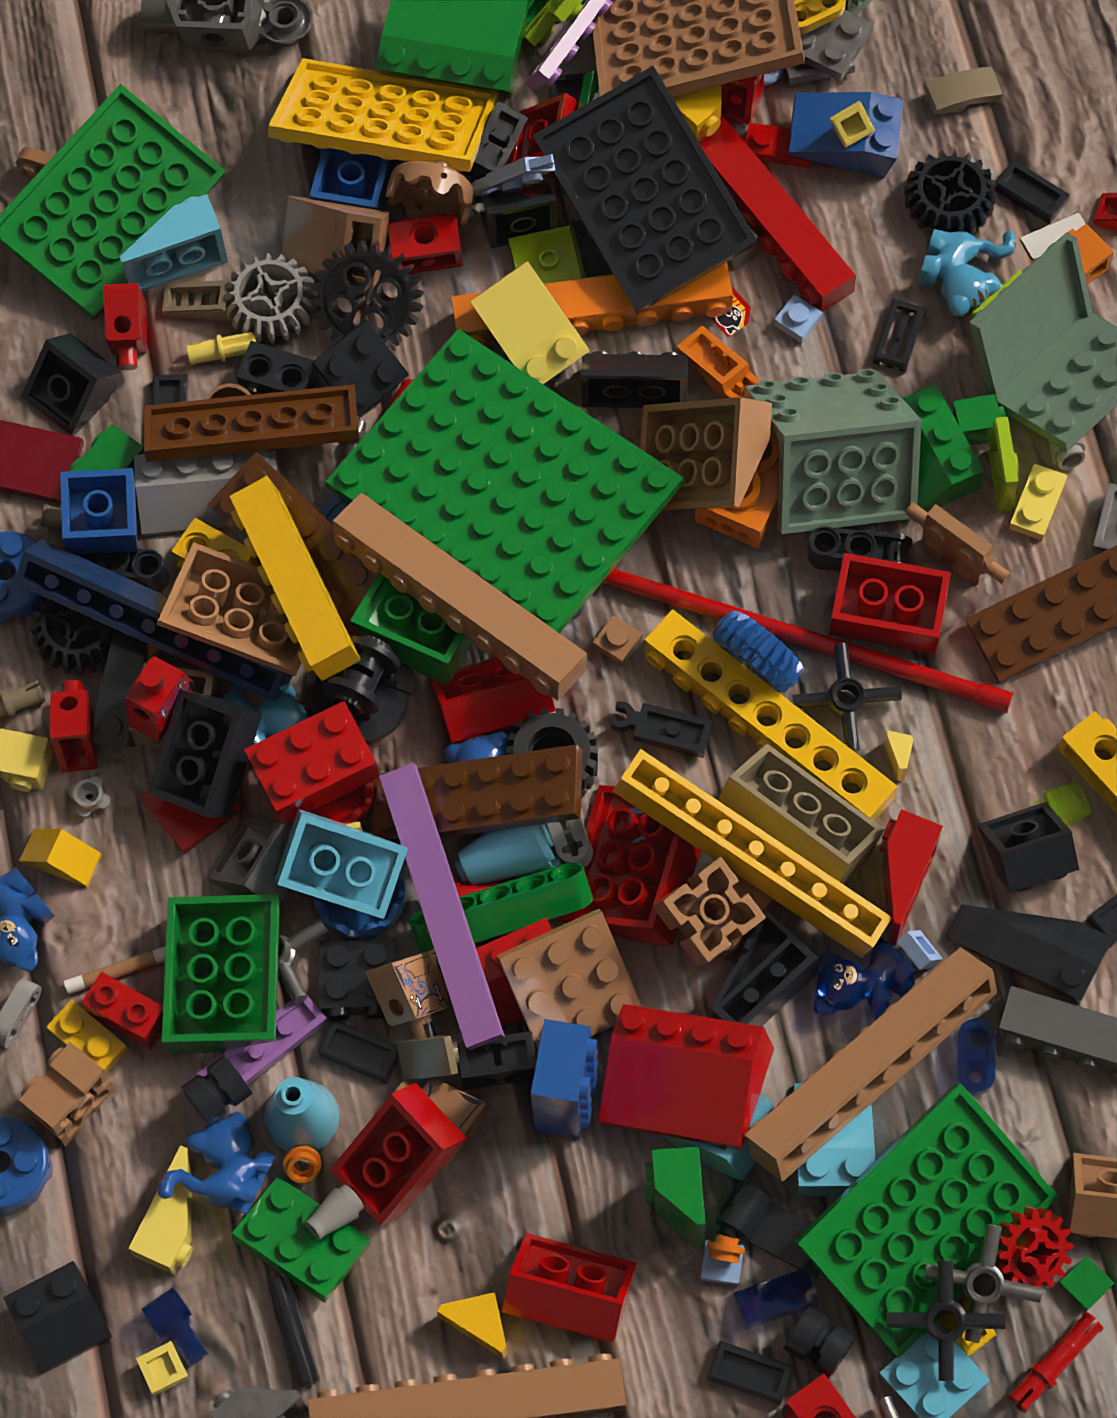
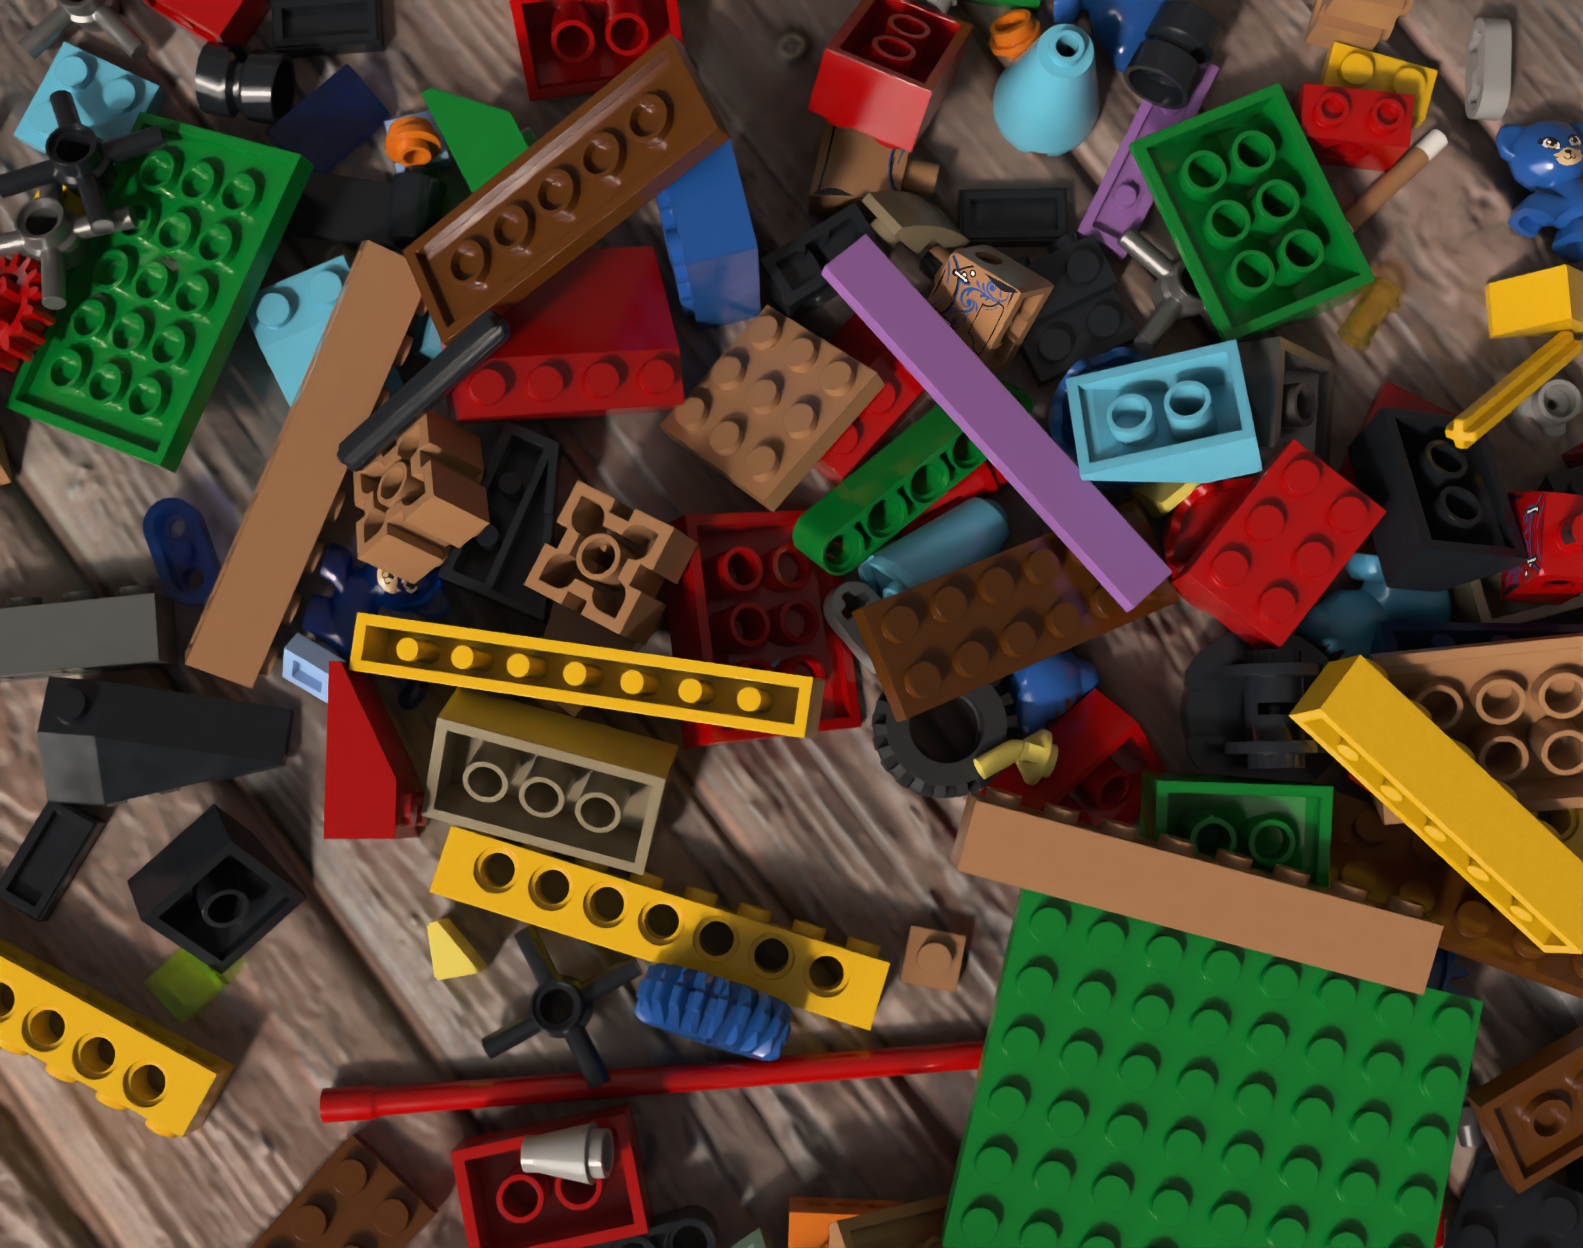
camera: 150 degrees right, 15 degrees up
(118, 802) = (1513, 389): none -> yellow axle
(159, 899) = (1369, 313): none -> clear yellow pin
(509, 711) = (1033, 756): none -> light yellow plate
(645, 1107) = (567, 190): none -> reddish brown plate
(665, 728) = (802, 848): black plate -> none
(779, 1048) = (424, 390): none -> black axle
(808, 1000) = (421, 498): none -> medium nougat brick
(869, 606) = (571, 1153): none -> light grey cone

